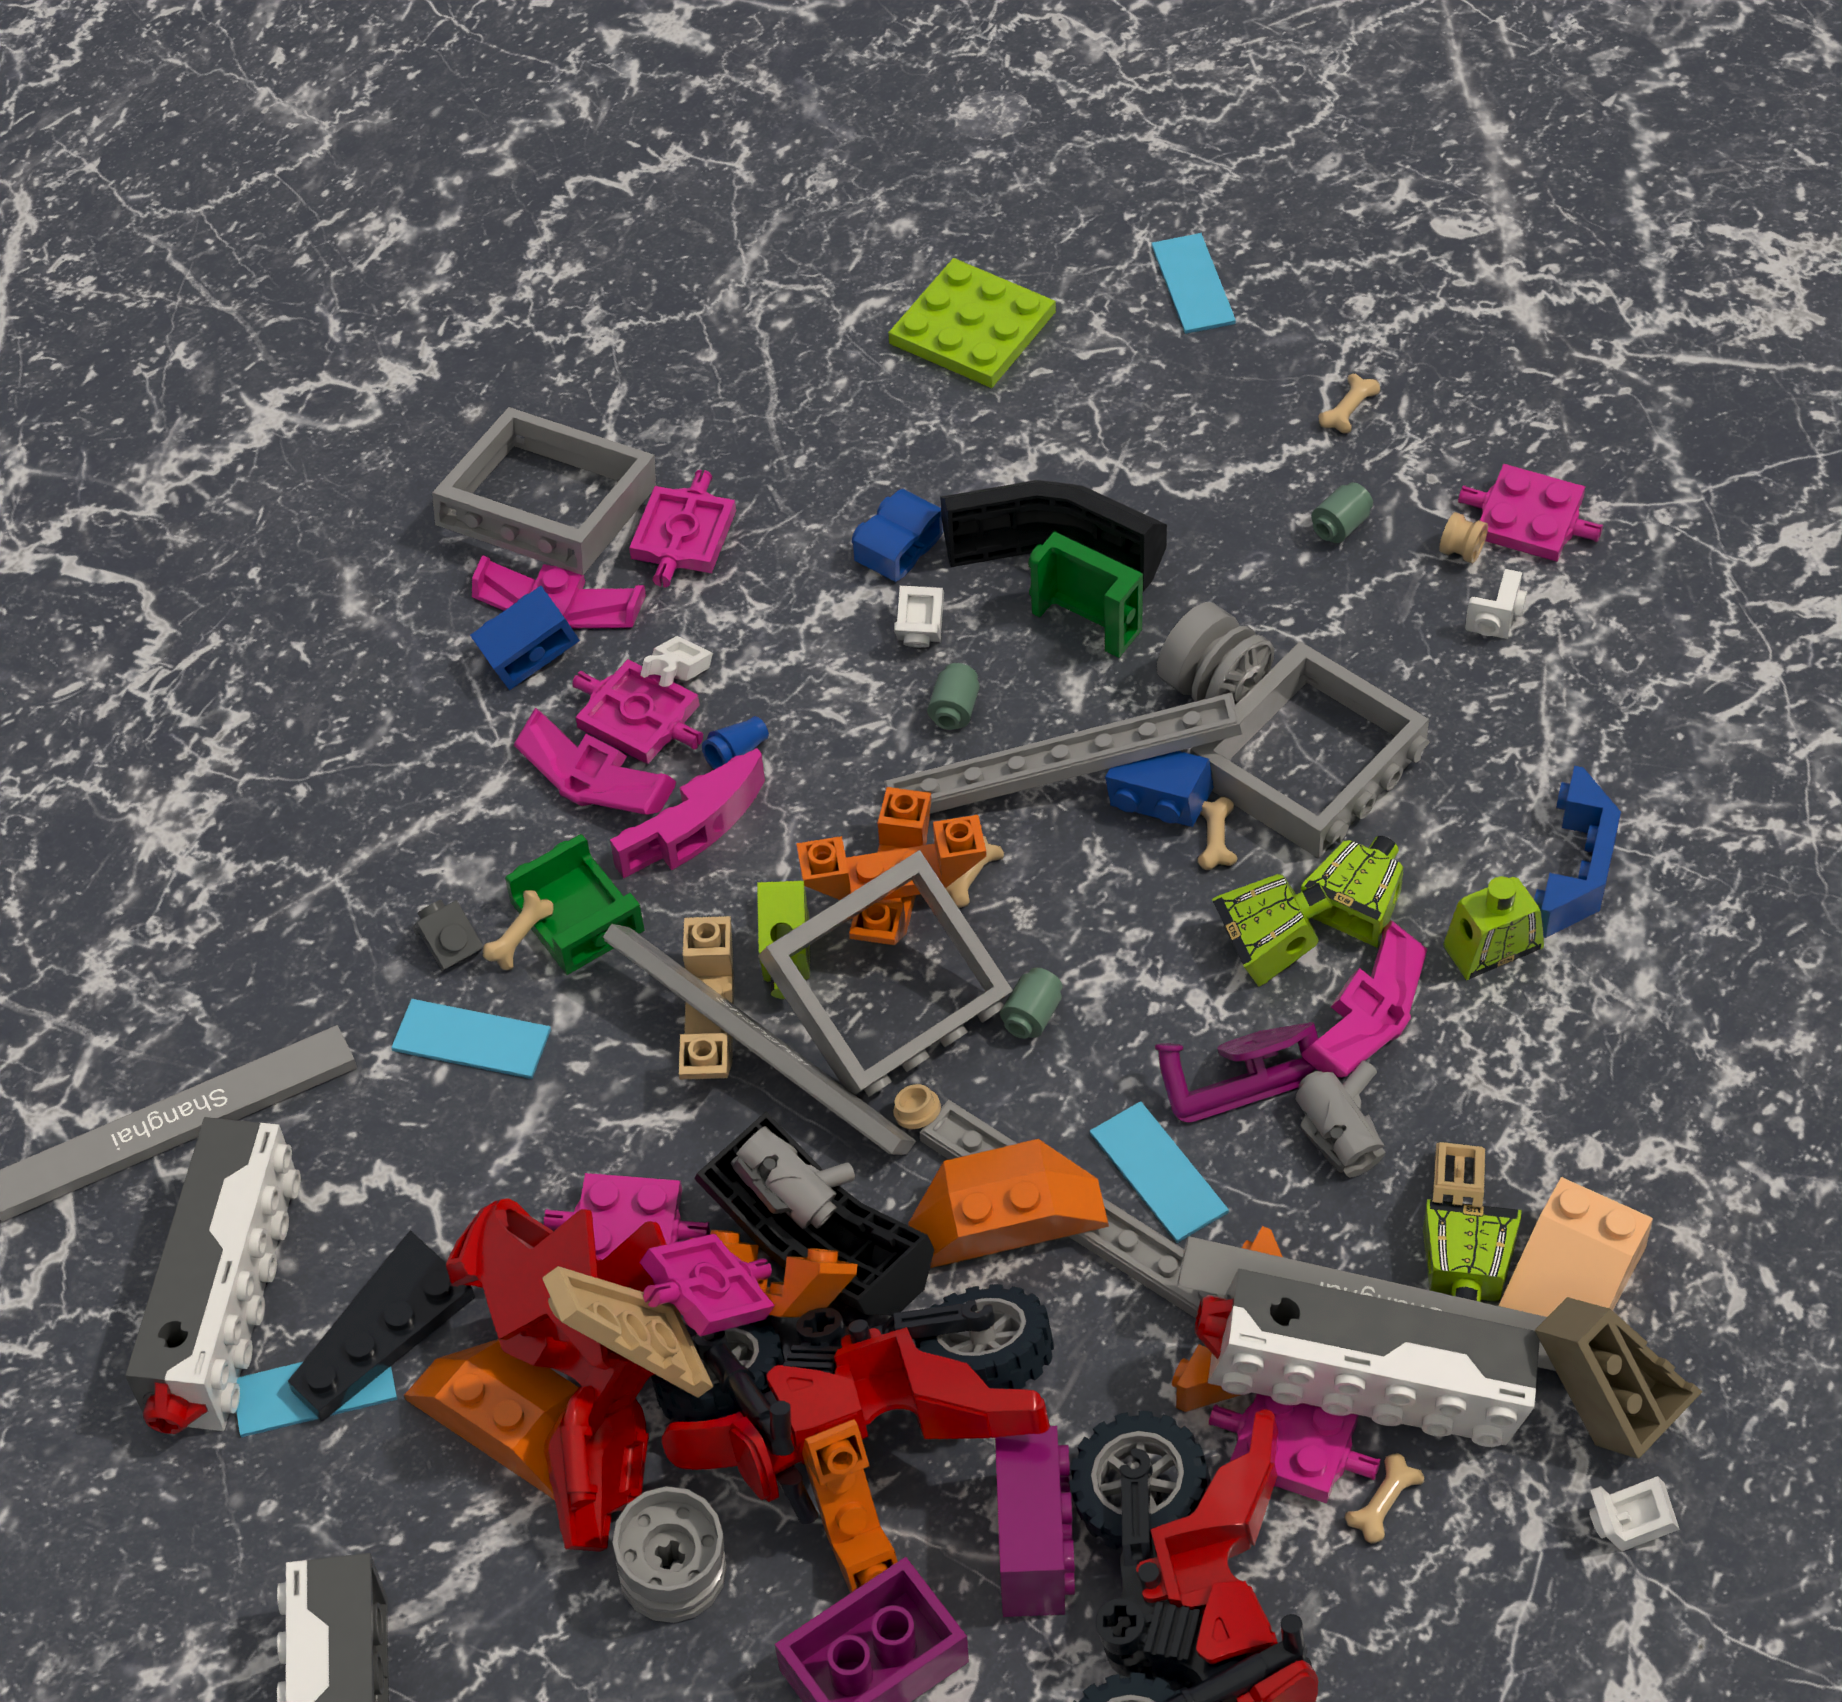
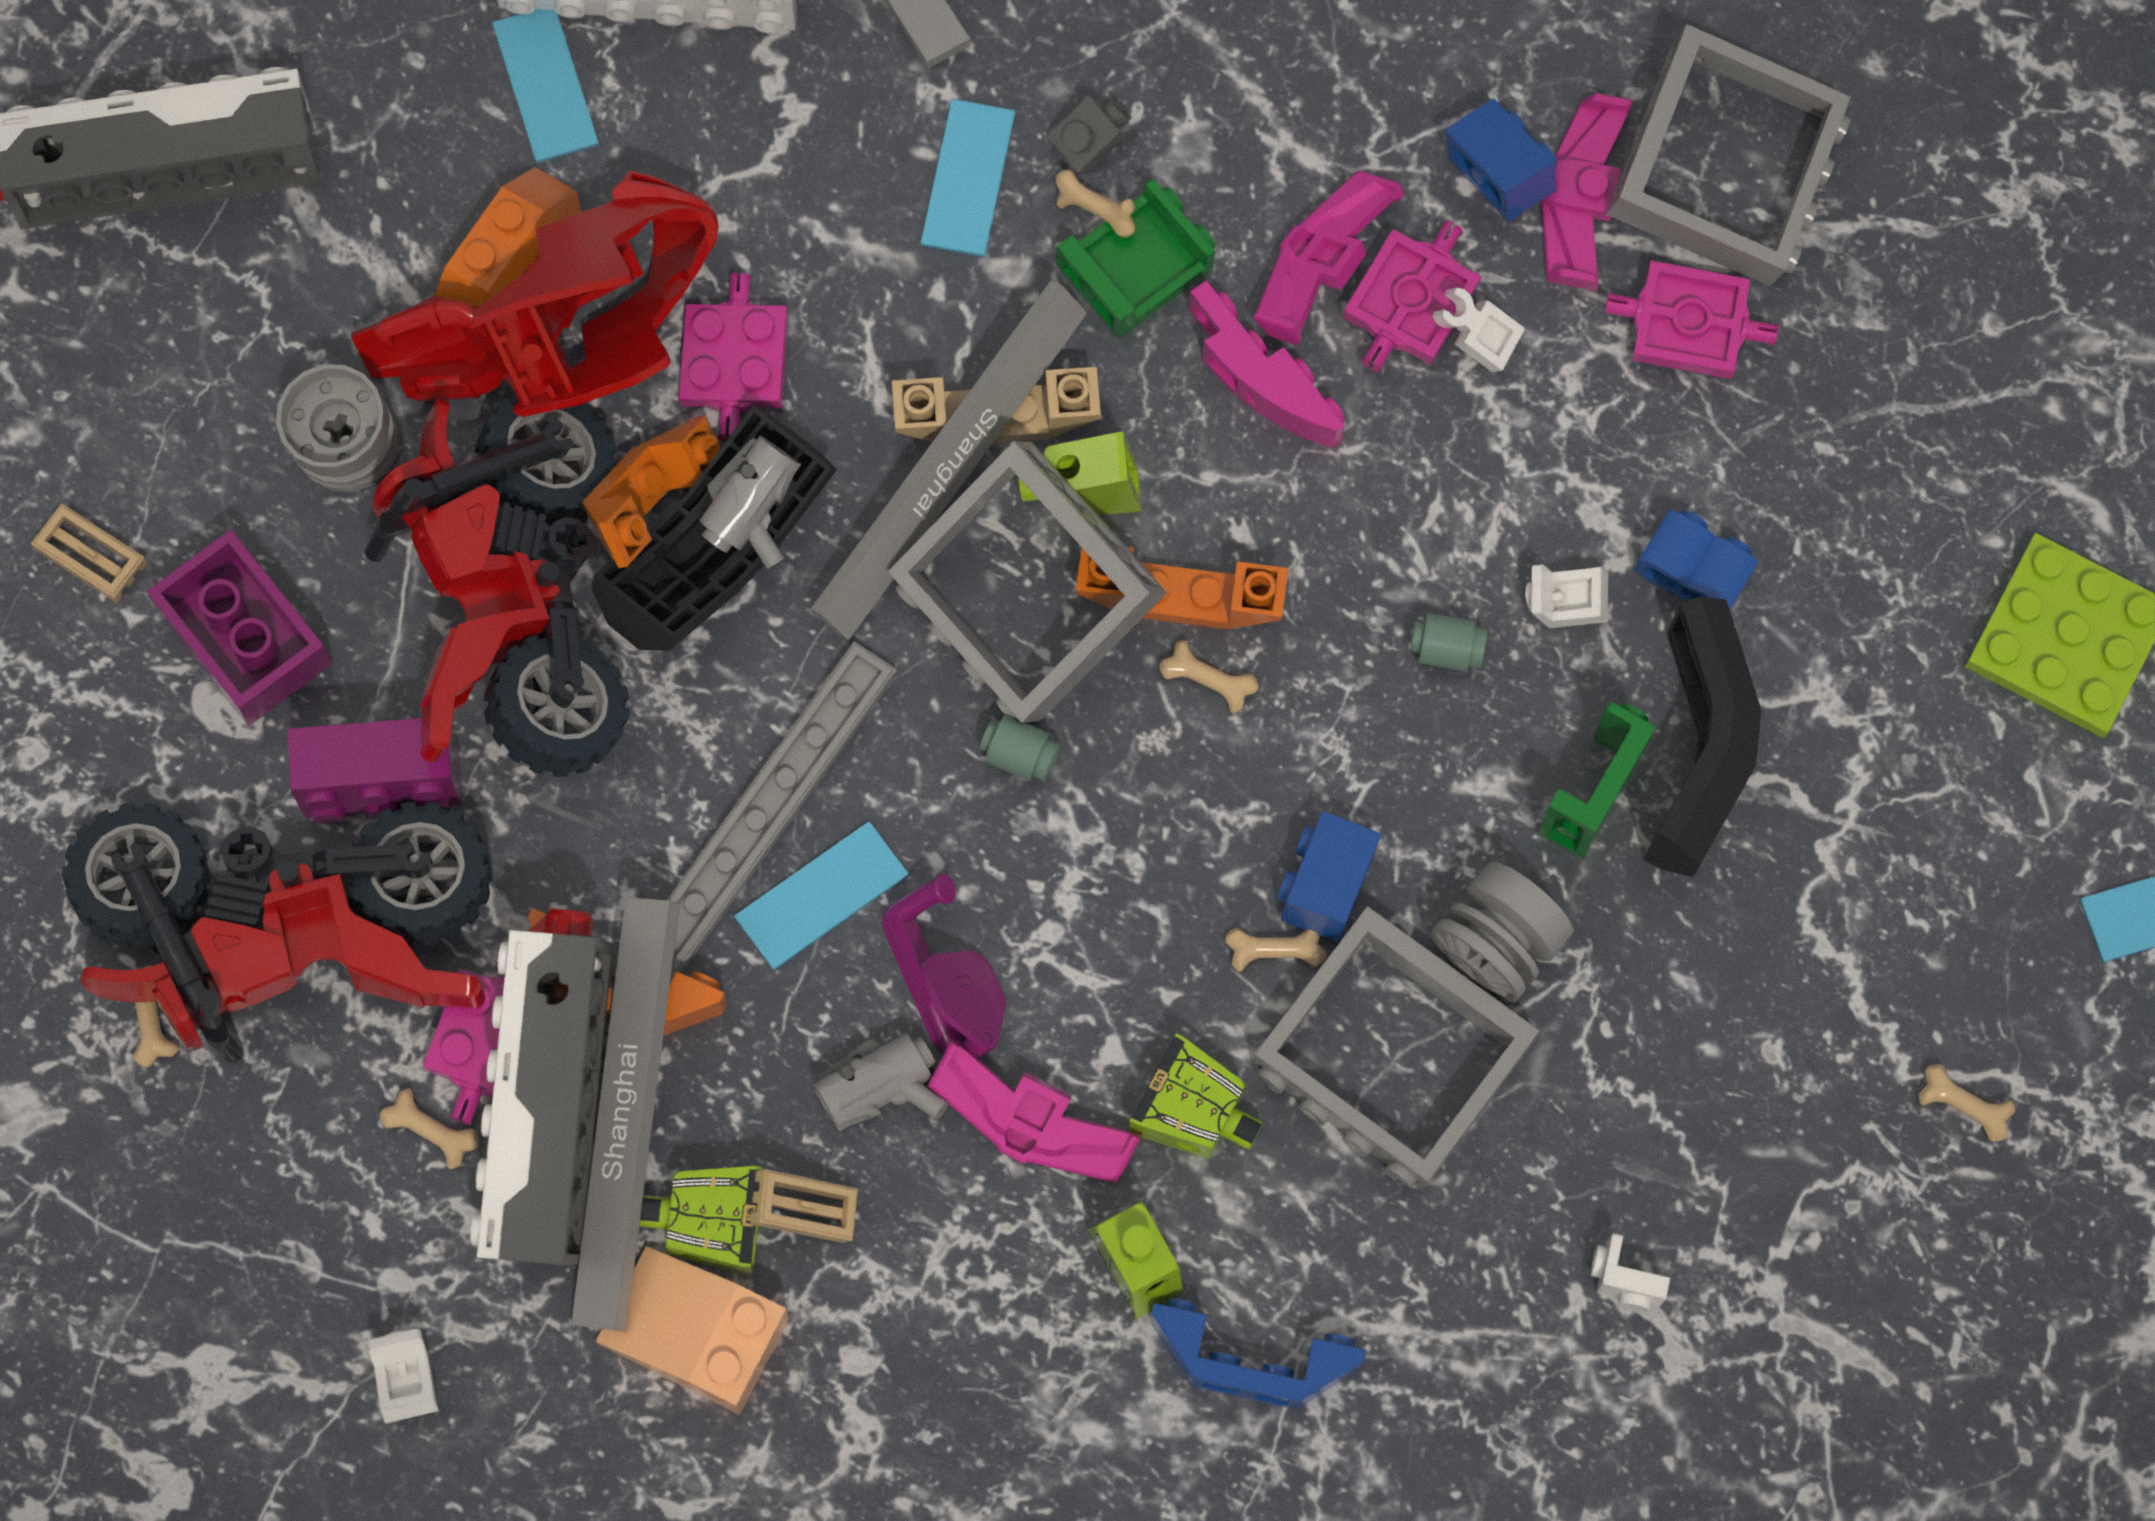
camera: 80 degrees right, 20 degrees up
(382, 1324) = (607, 128): black wing -> none
(628, 1326) = (506, 338): tan wing -> none
(707, 1284) = (599, 421): dark pink plate -> none
(733, 741) = (1370, 406): blue cone -> none
(838, 1479) = (366, 611): orange slope -> none
(916, 1106) = (884, 636): tan plate -> none
(955, 851) = (1172, 558): orange slope -> none
(1006, 1202) = (757, 732): orange wedge -> none
(1076, 753) = (1351, 768): light grey tile -> none
(1271, 924) = (1126, 1000): lime torso -> none
(1342, 512) = (1768, 1088): sand green brick -> none
(1463, 537) = (1737, 1236): tan wheel -> none
(1531, 512) = (1793, 1323): dark pink plate -> none
(1613, 1377) = (536, 1354): dark tan wedge -> none

